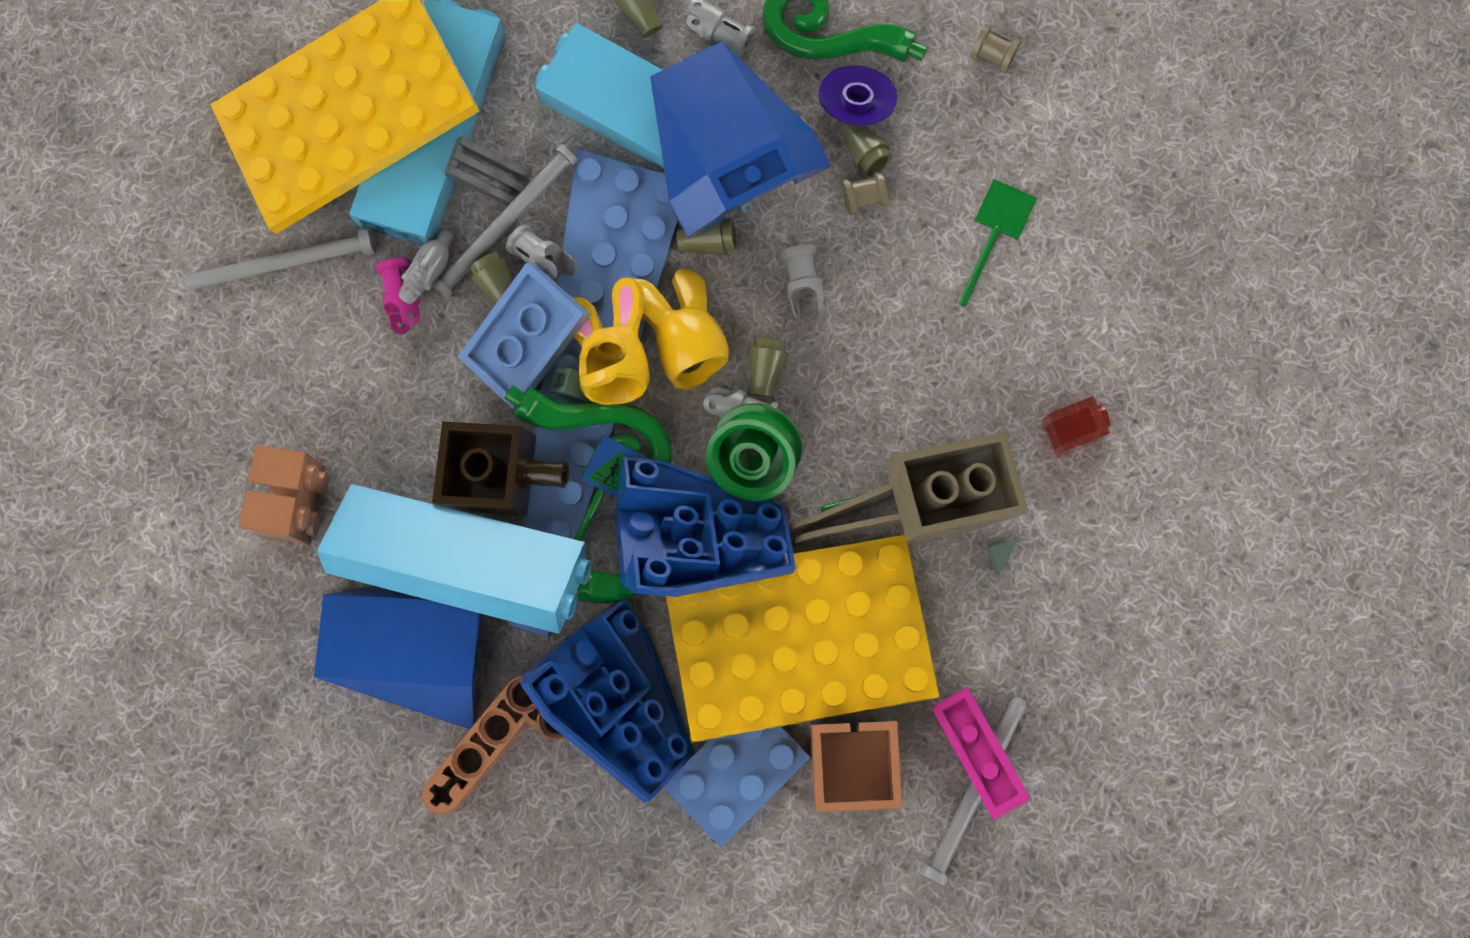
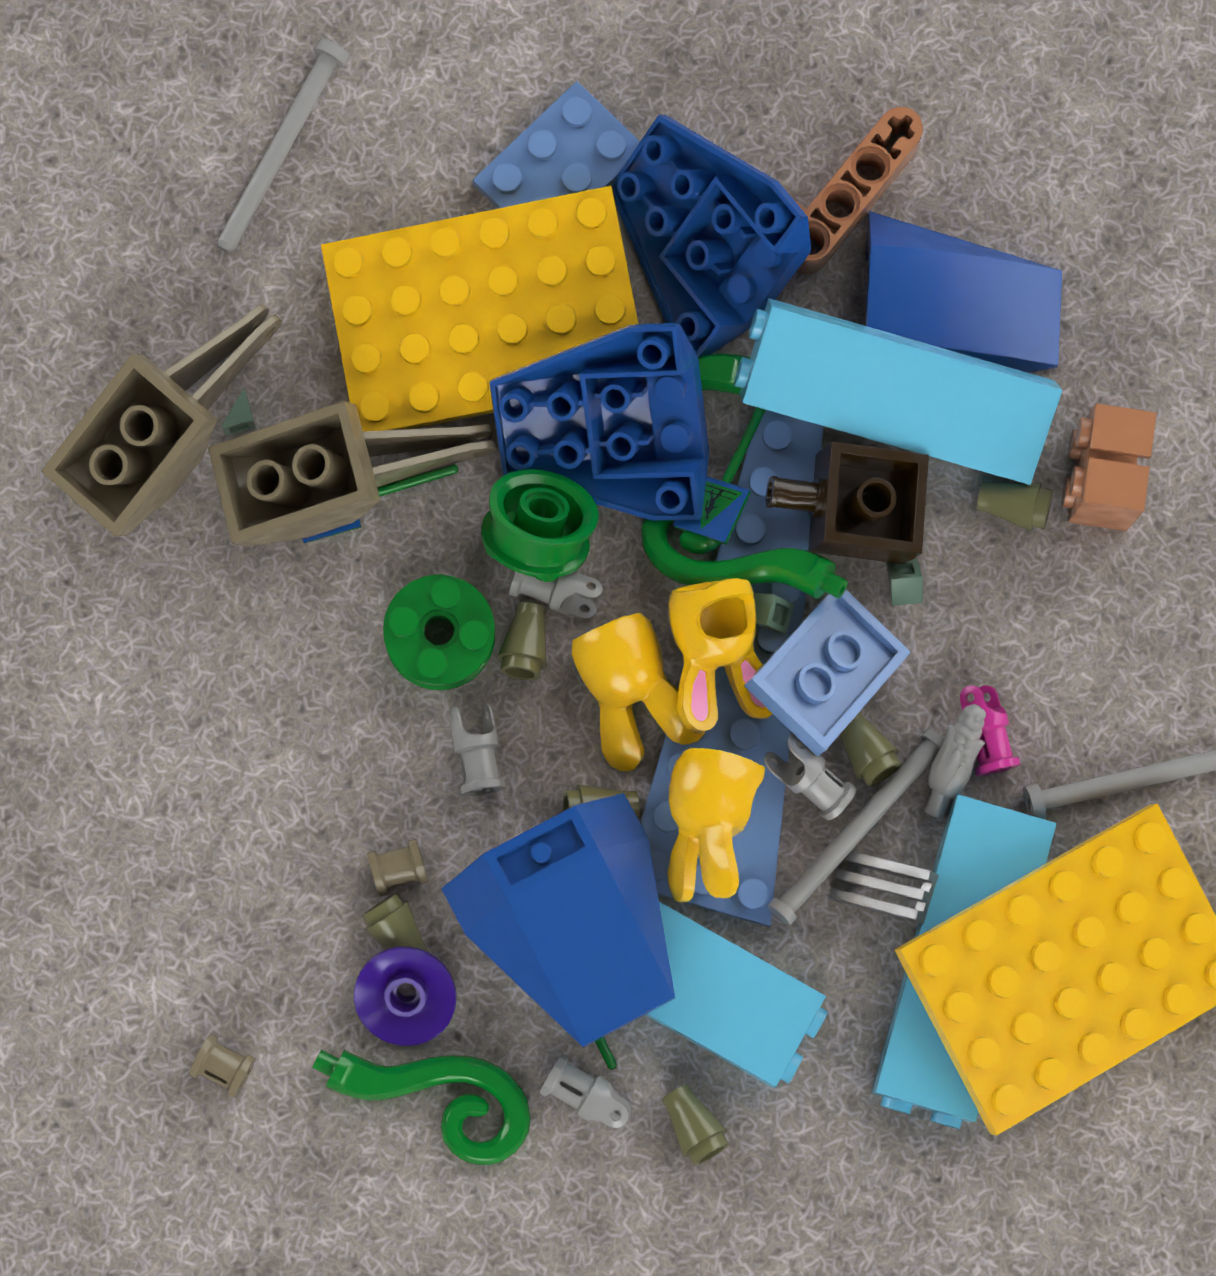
camera: 175 degrees right, 0 degrees up
(364, 473) = (1016, 503): none -> olive cone
(459, 411) = (905, 583): none -> sand green piece
(619, 221) = (710, 804): none -> yellow piece
(839, 347) = (433, 600): none -> green wheel
(856, 767) = (420, 162): nougat piece -> none
(981, 754) = (273, 179): dark pink plate -> none
(1004, 211) = (218, 850): green piece -> none
(1076, 426) = (141, 566): clear red brick -> none
(1081, 525) = (148, 430): none -> dark tan slope

